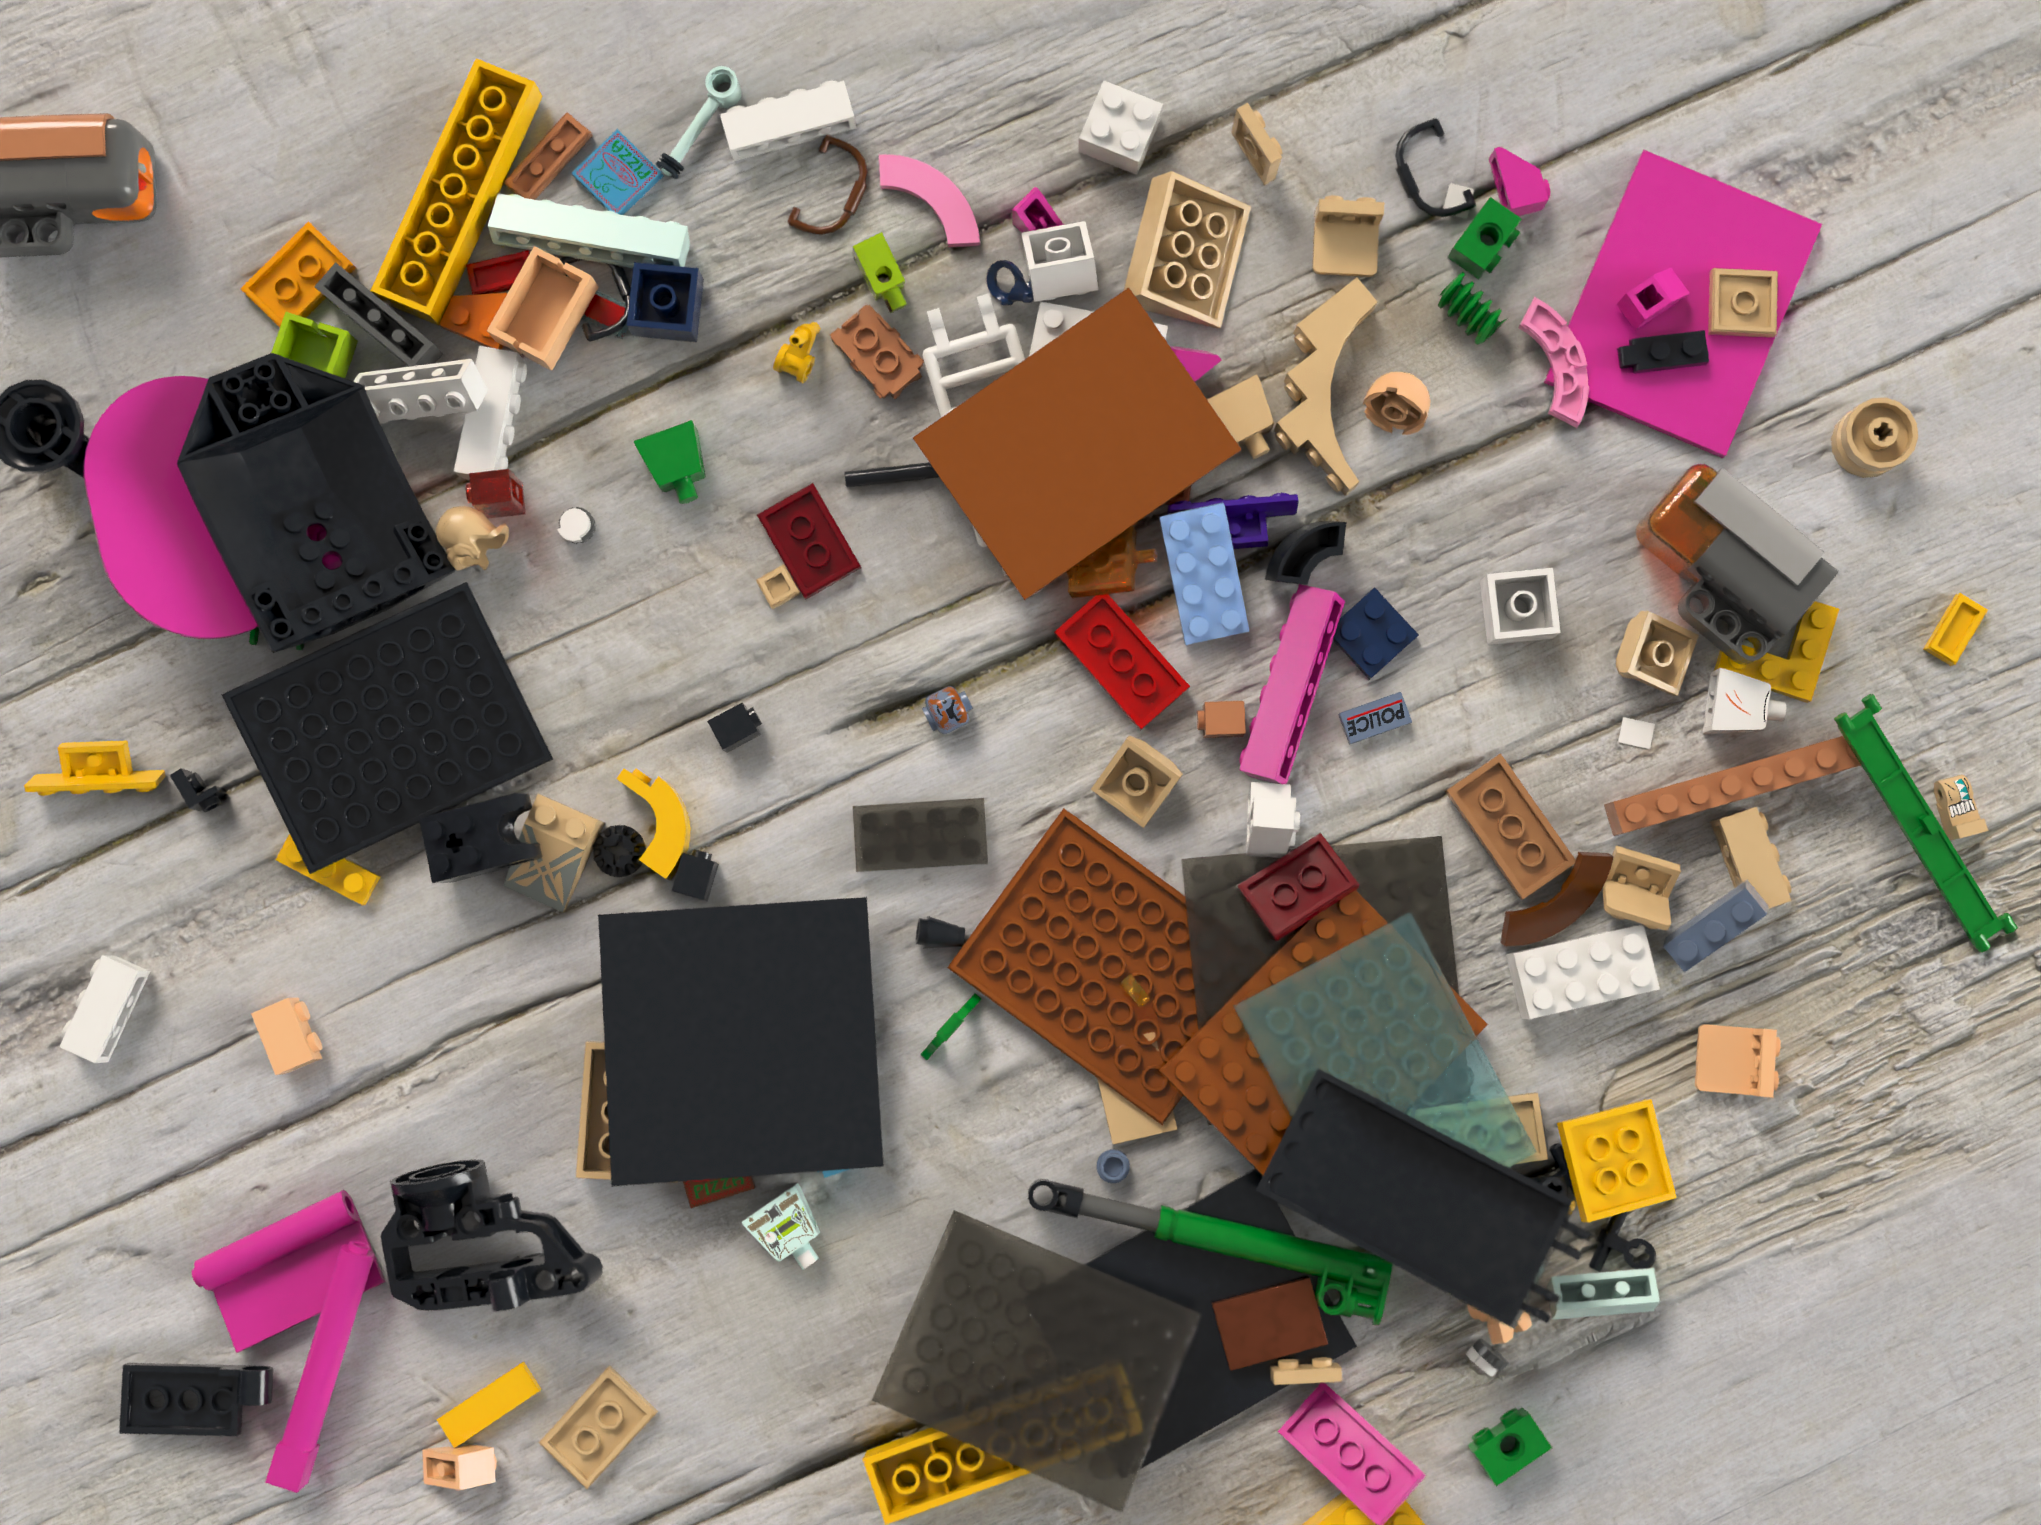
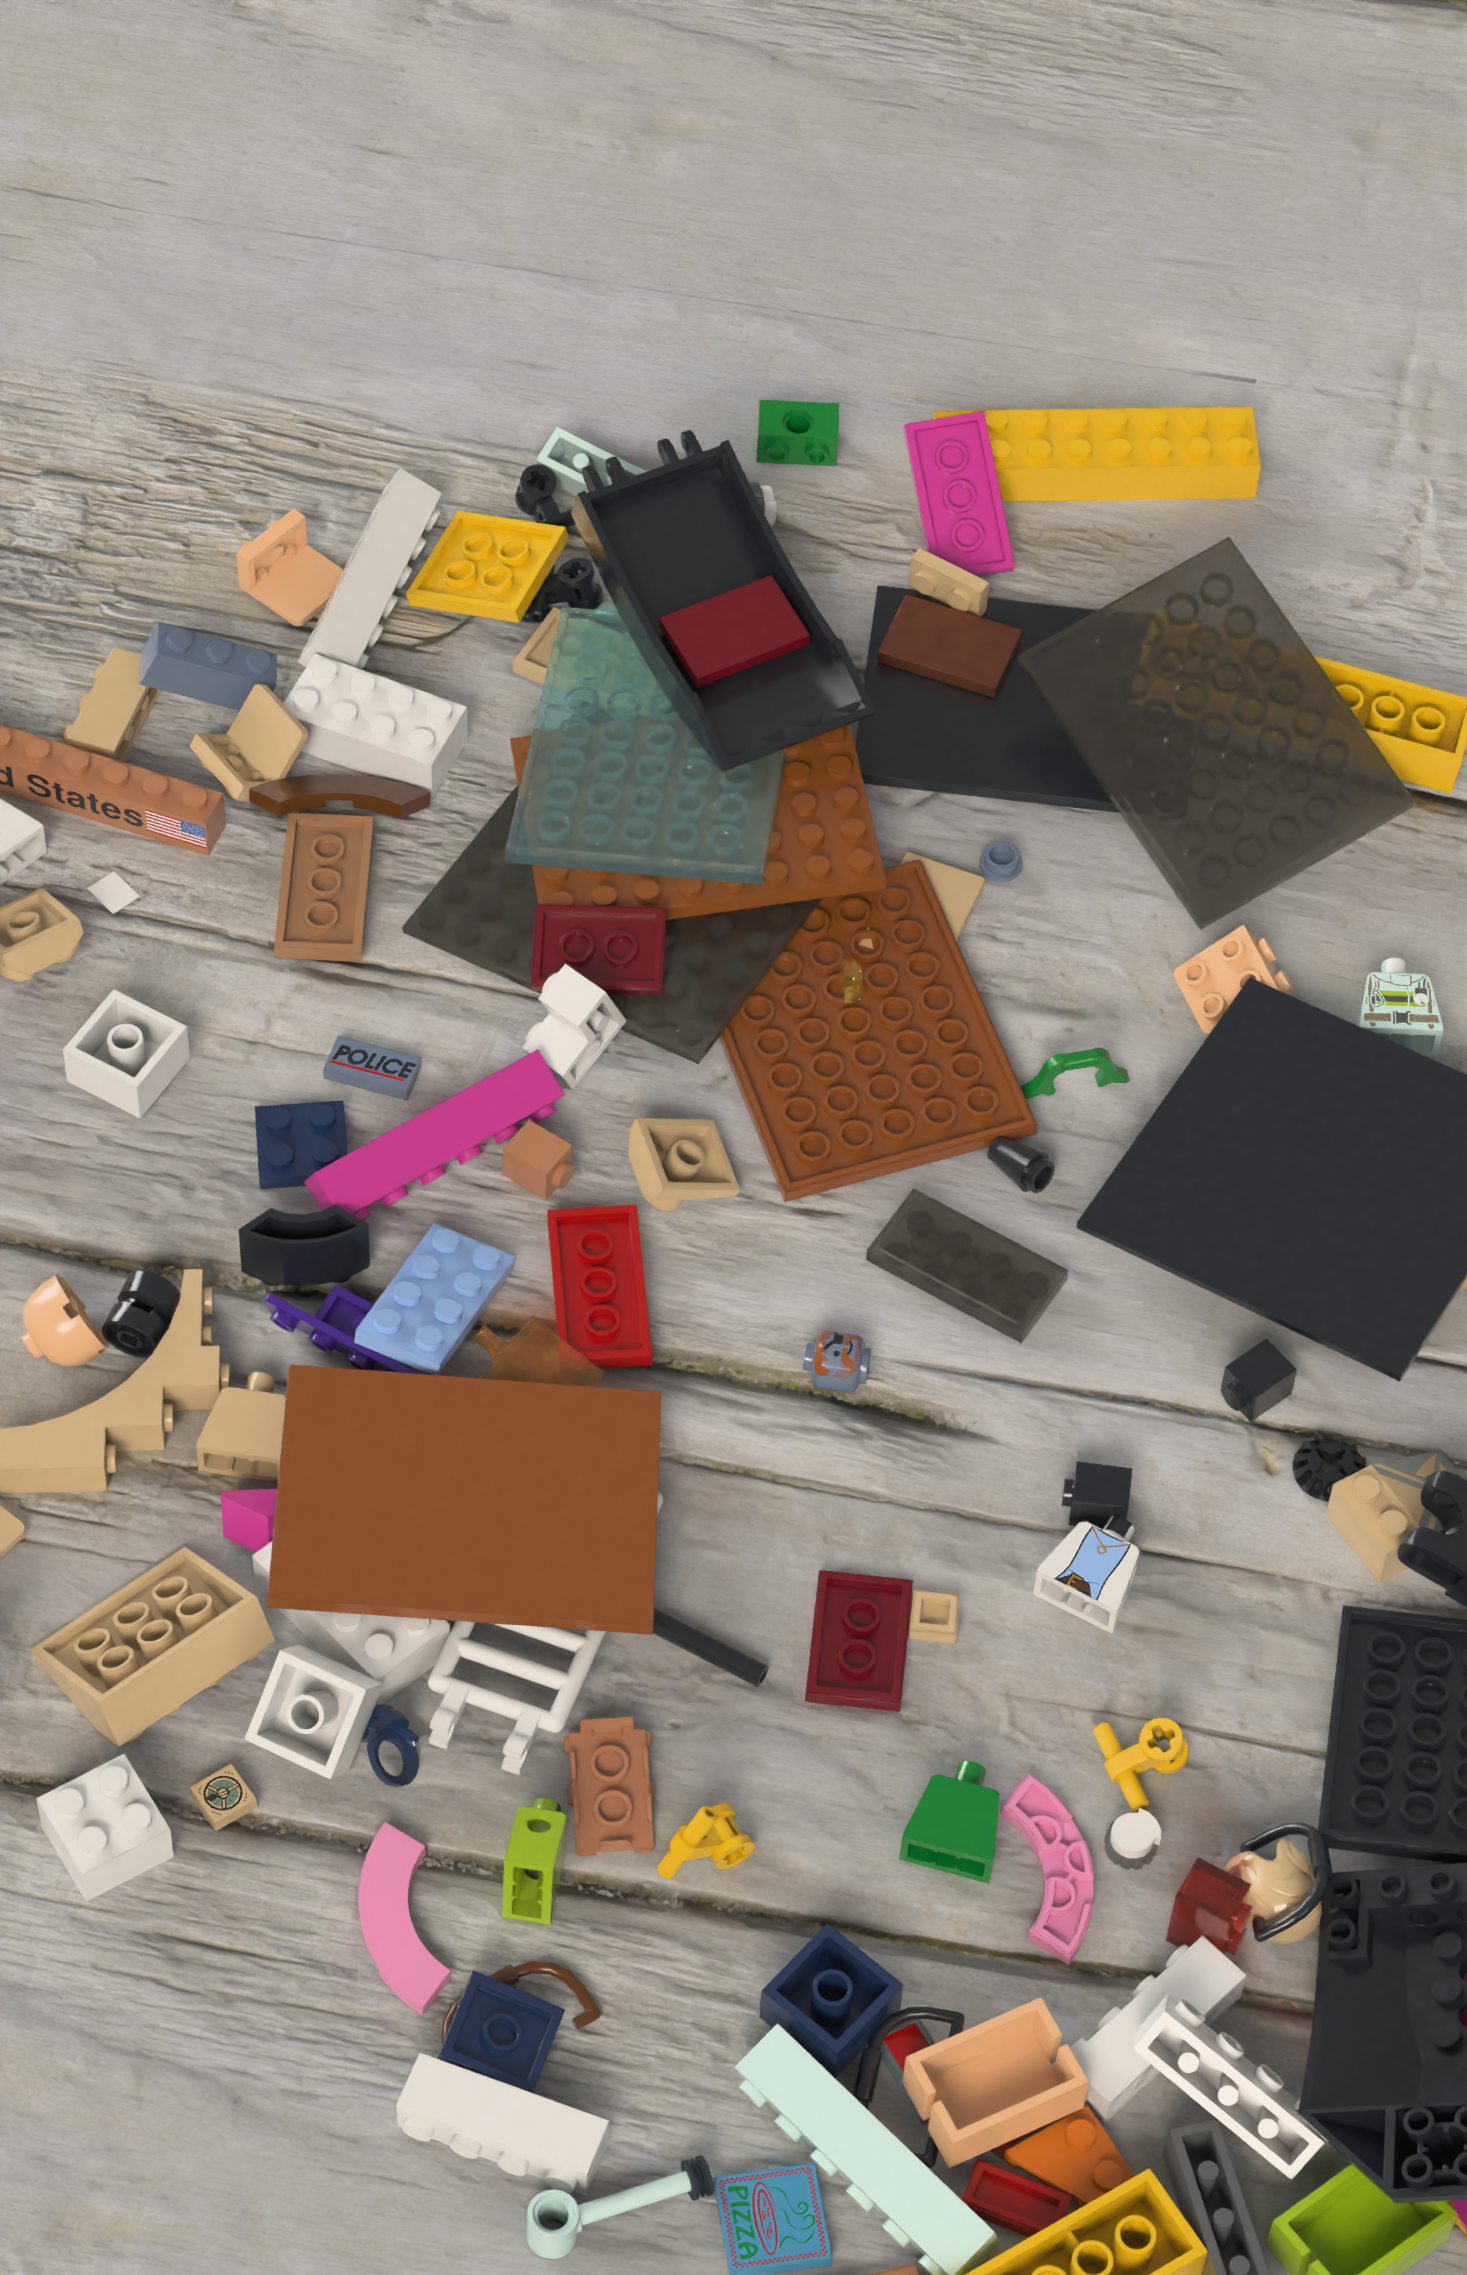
camera: 150 degrees left, 30 degrees down
(450, 557) = (1320, 1866): none -> black piece
(592, 581) = (1126, 1764): none -> yellow piece
(604, 486) = (1063, 1863): none -> bright pink tile
(672, 821) = (1259, 1433): yellow arch -> none
(705, 674) = (1091, 1572): none -> white torso
(824, 163) = (501, 2032): none -> dark blue plate
(906, 1177) = (1220, 971): none -> light nougat bracket
(1034, 213) = (295, 1798): dark pink slope -> none
(1077, 197) = (223, 1797): none -> tile
(1353, 1273) = (862, 626): green piece -> none
(1365, 453) = (141, 1314): none -> black wheel
(1398, 1193) = (734, 631): none -> dark red tile
(1683, 1093) = (374, 572): none -> white brick

